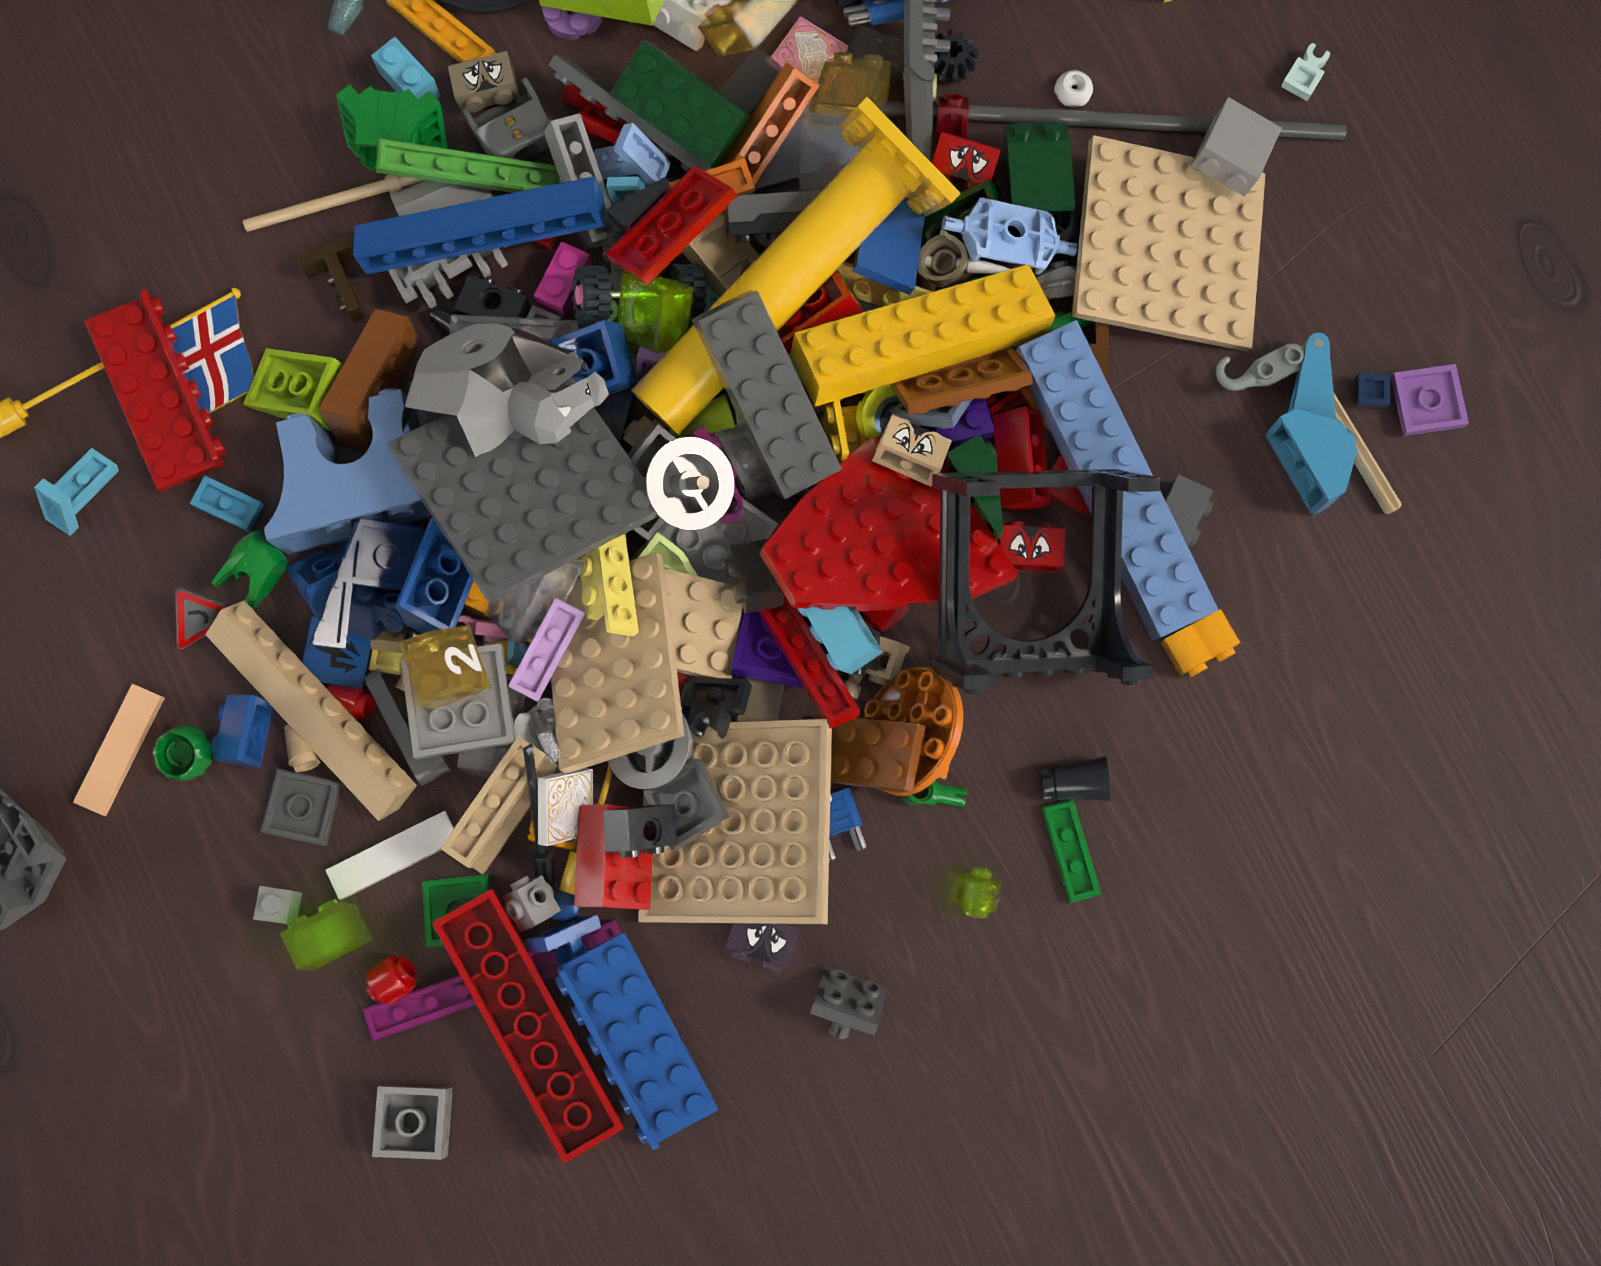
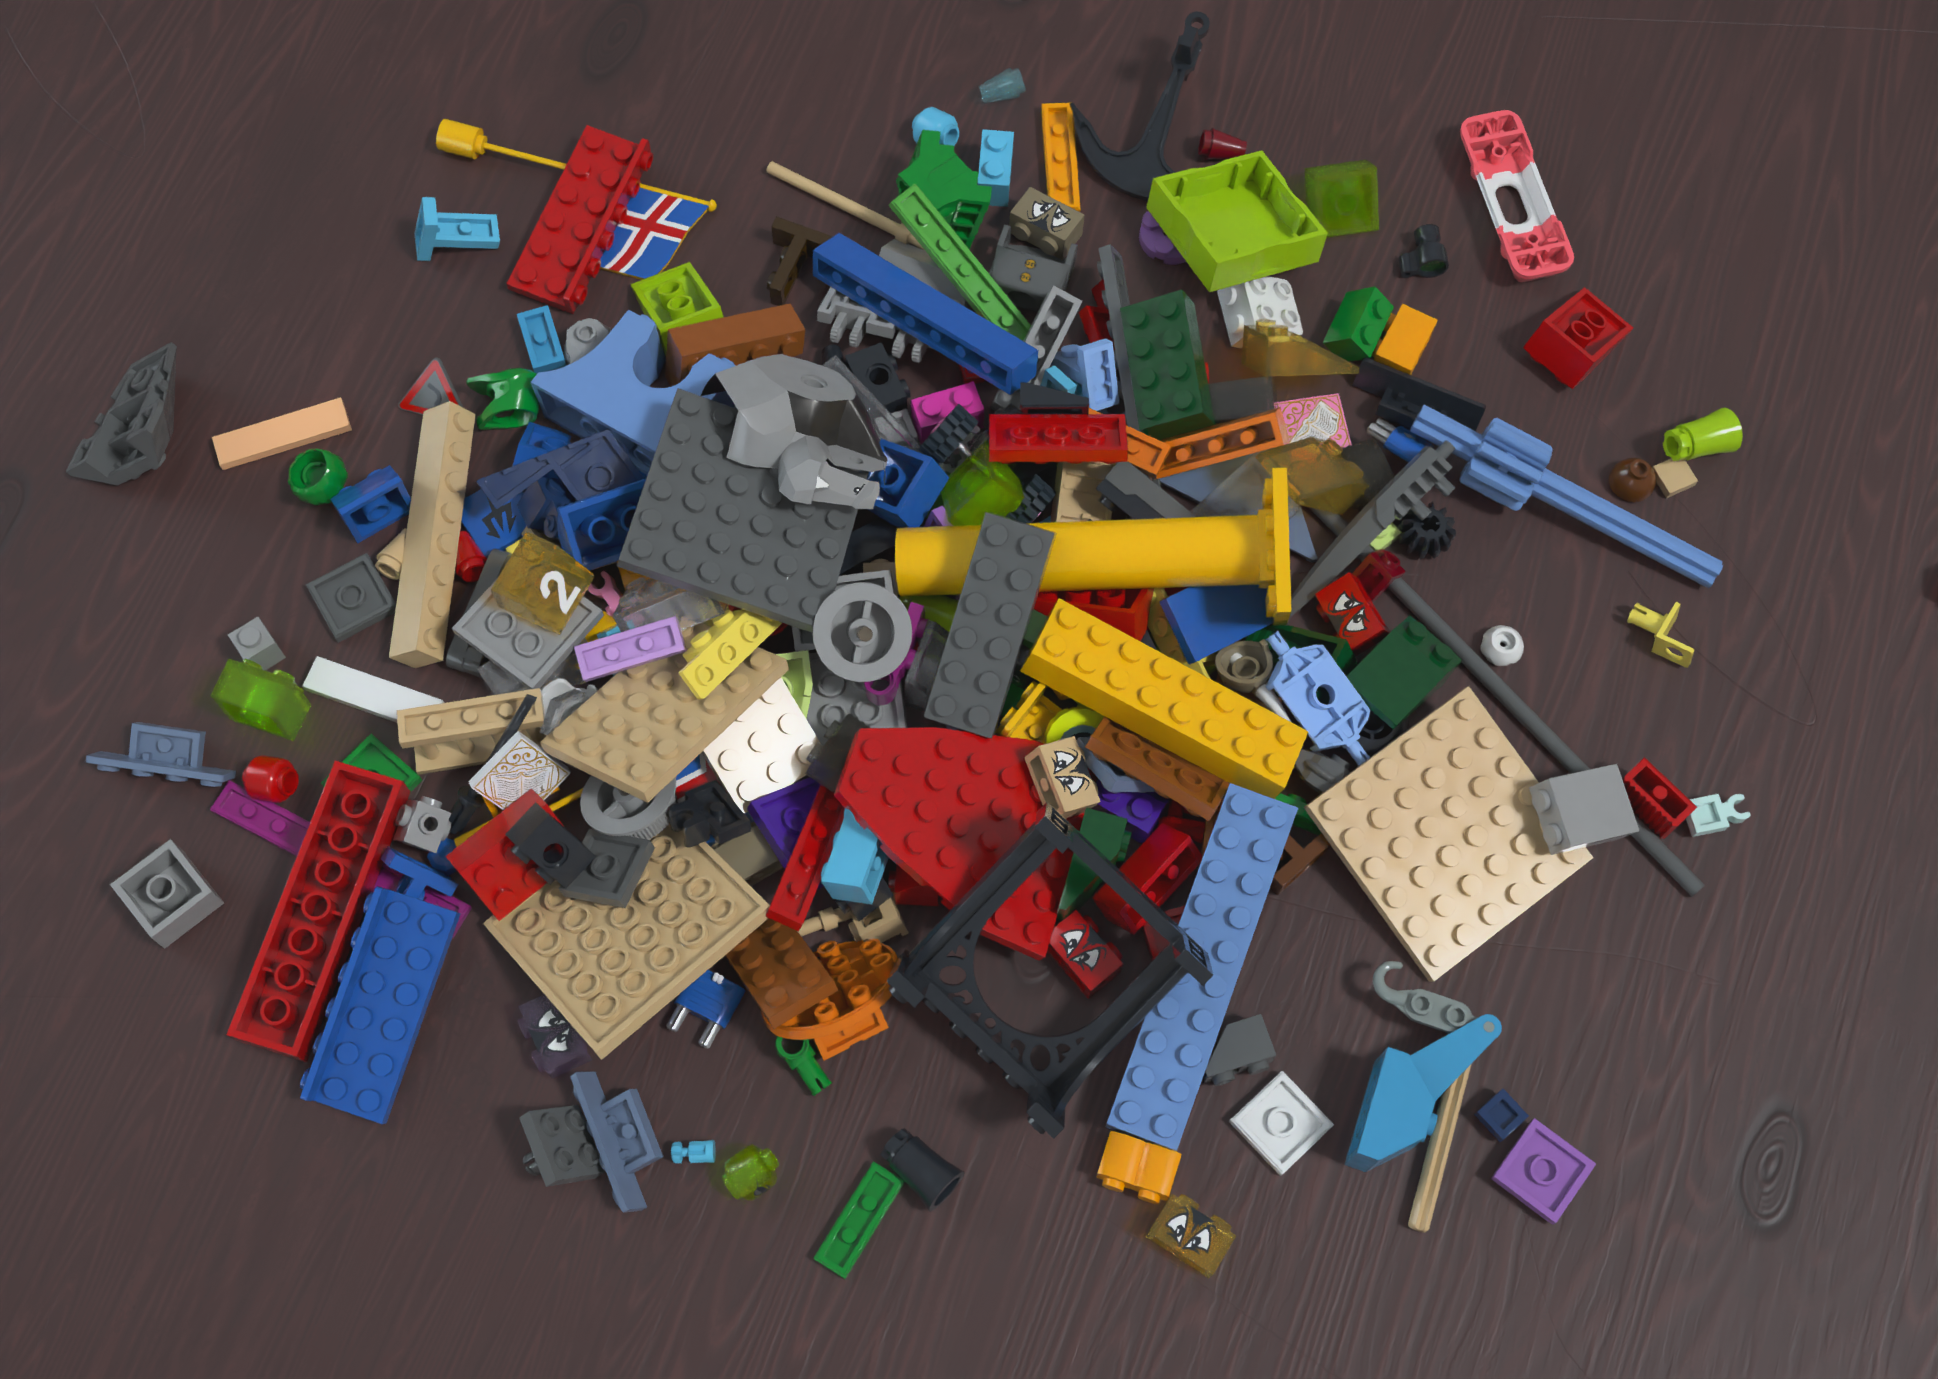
camera: 45 degrees right, 10 degrees down
(263, 476) = (583, 338): none -> light grey hand
(299, 1037) = (164, 751): none -> sand blue bracket
(329, 83) = (936, 120): none -> medium azure head
(874, 955) = (621, 1137): none -> sand blue bracket
(929, 916) = (696, 1152): none -> medium azure piece
(1252, 529) = (1281, 1123): none -> white tile
(1269, 96) = (1656, 798): none -> red brick
(1274, 651) = (1191, 1234): none -> clear yellow brick

